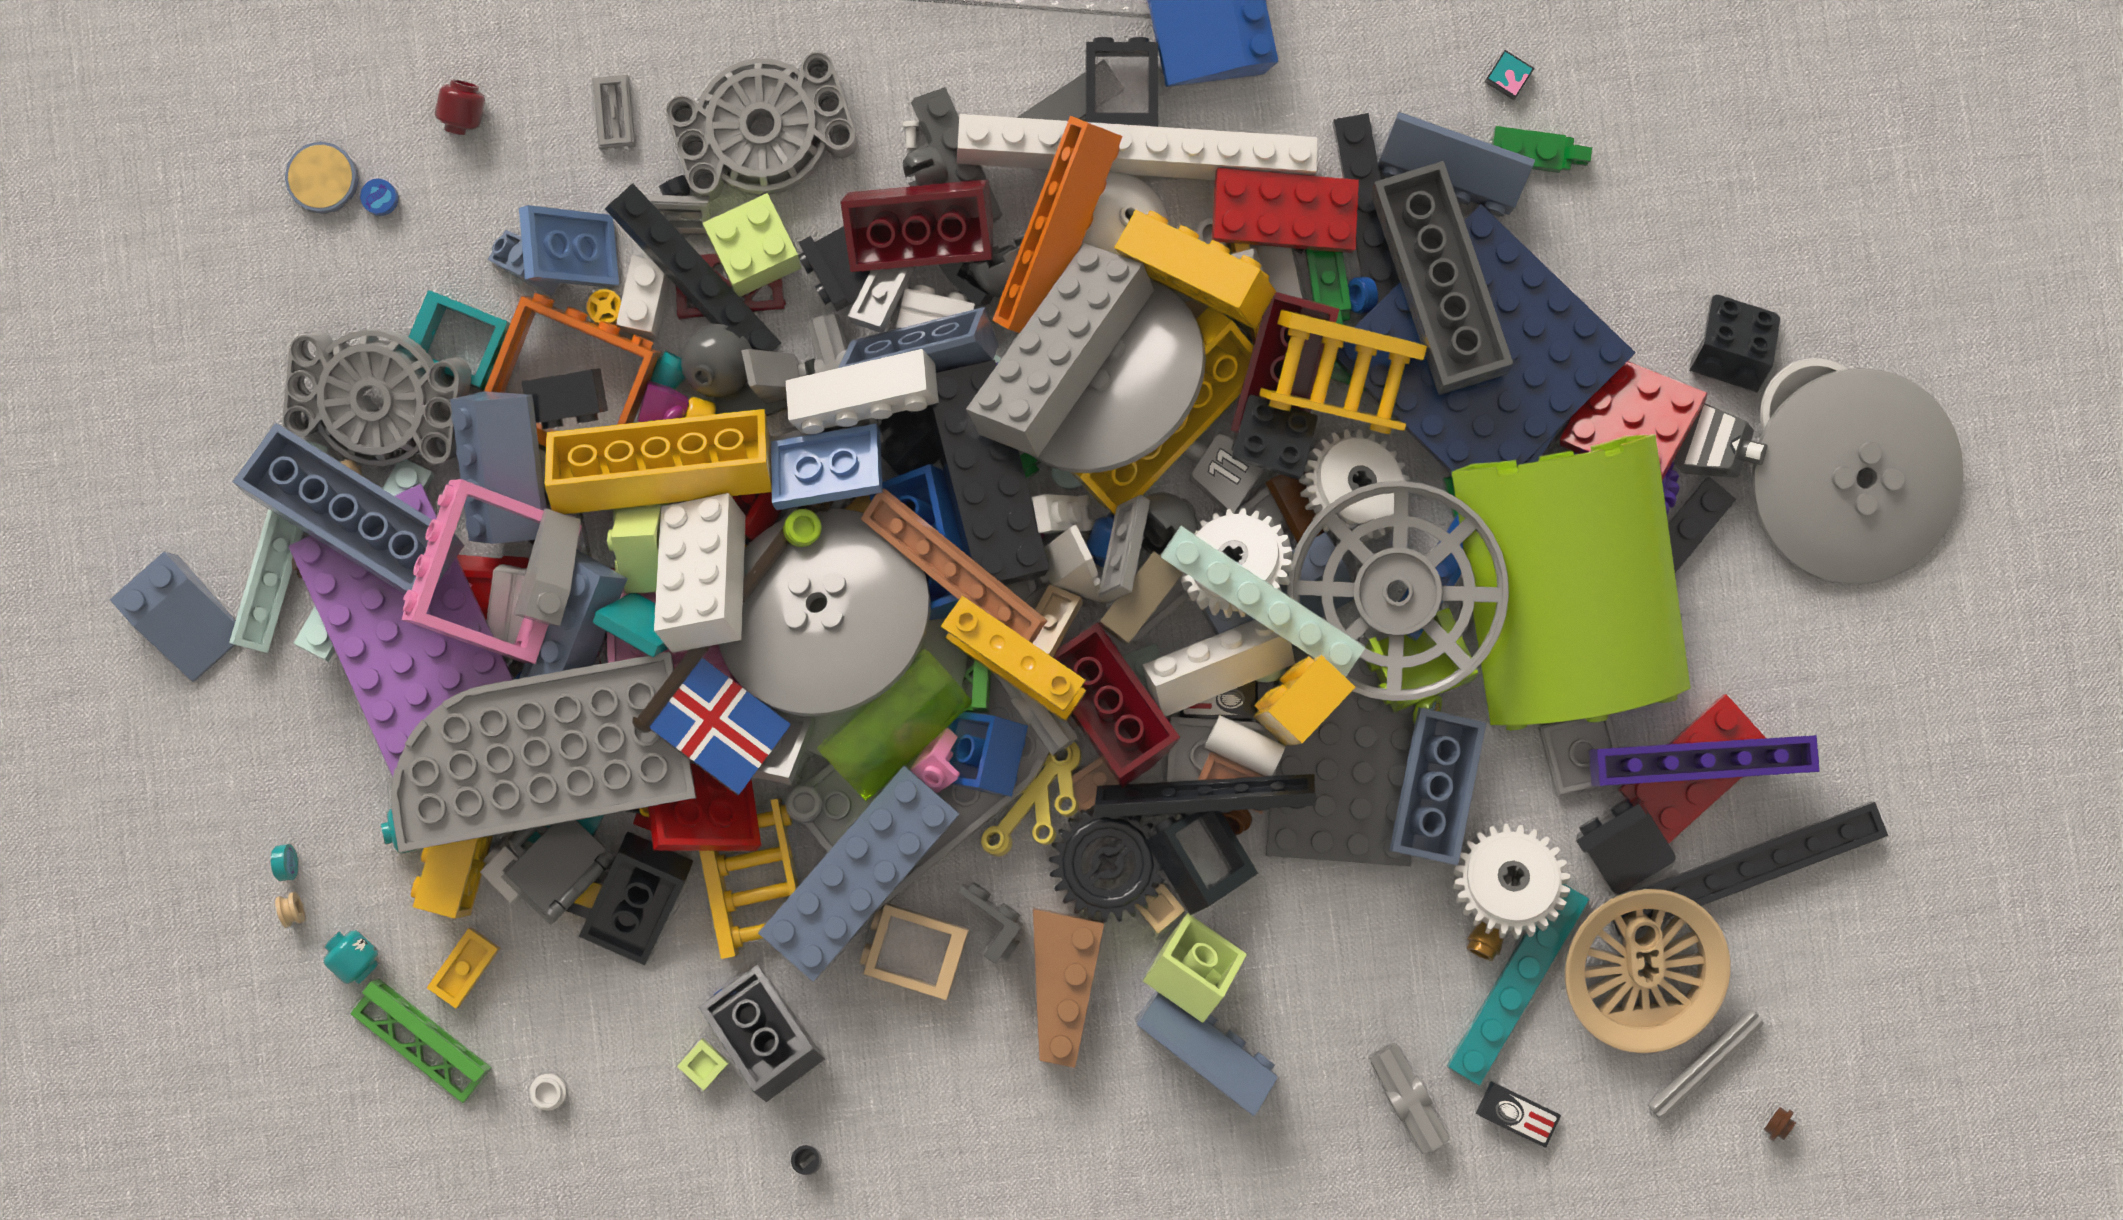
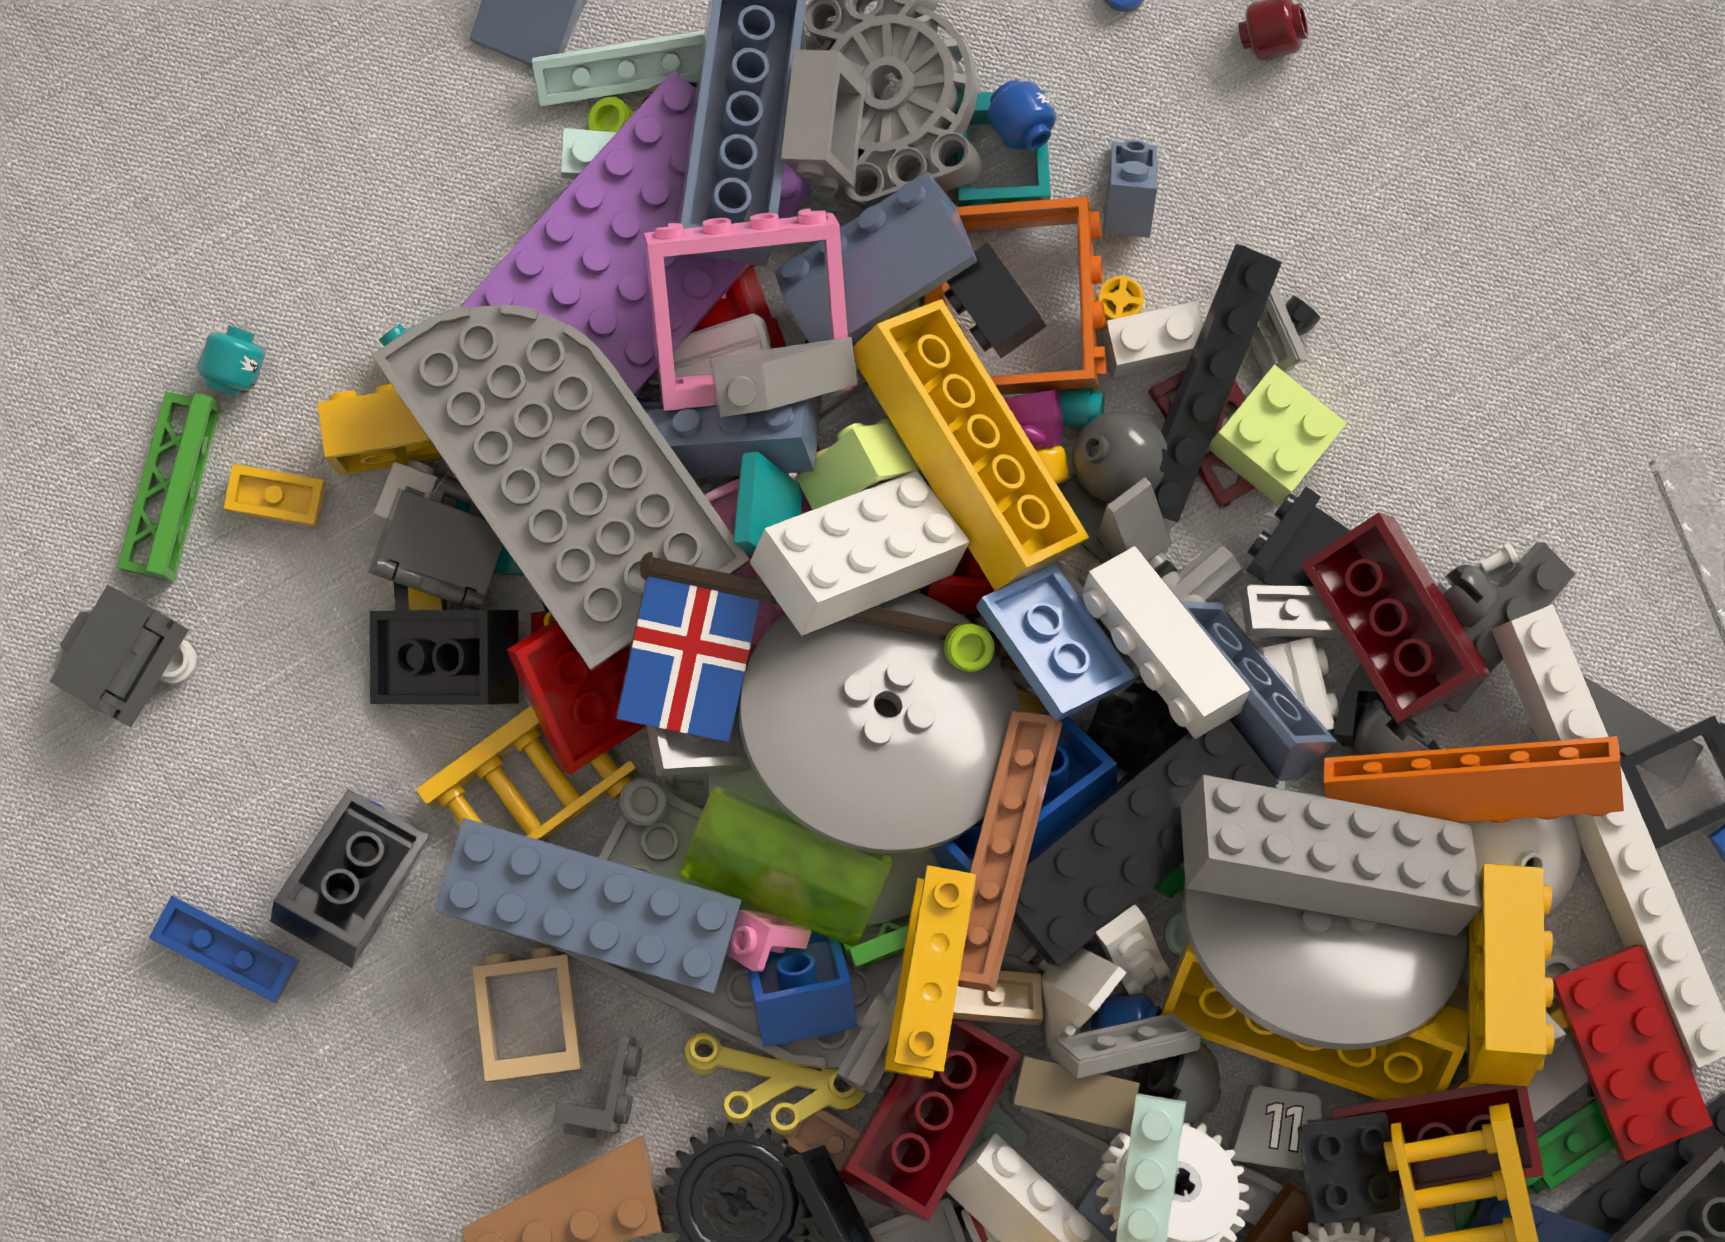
camera: 65 degrees right, 5 degrees down
(284, 862) = (307, 236): teal tile -> none
(290, 909) = (255, 268): tan bush -> none
(298, 606) = (608, 115): none -> lime tile
(377, 455) = (823, 119): none -> light grey window
(440, 314) = (1021, 115): none -> blue head
(526, 1129) = (117, 654): none -> dark grey piece
(568, 246) = (1171, 224): medium blue plate -> none
(617, 142) = (1322, 224): light grey tile -> none
(703, 1064) = (283, 826): yellowish green plate -> none
(766, 159) = (1395, 416): light grey piece -> none
(770, 1143) = (224, 949): none -> blue plate
(803, 1153) = (227, 993): black hinge -> none
(1362, 294) = (1574, 1195): blue tile -> none

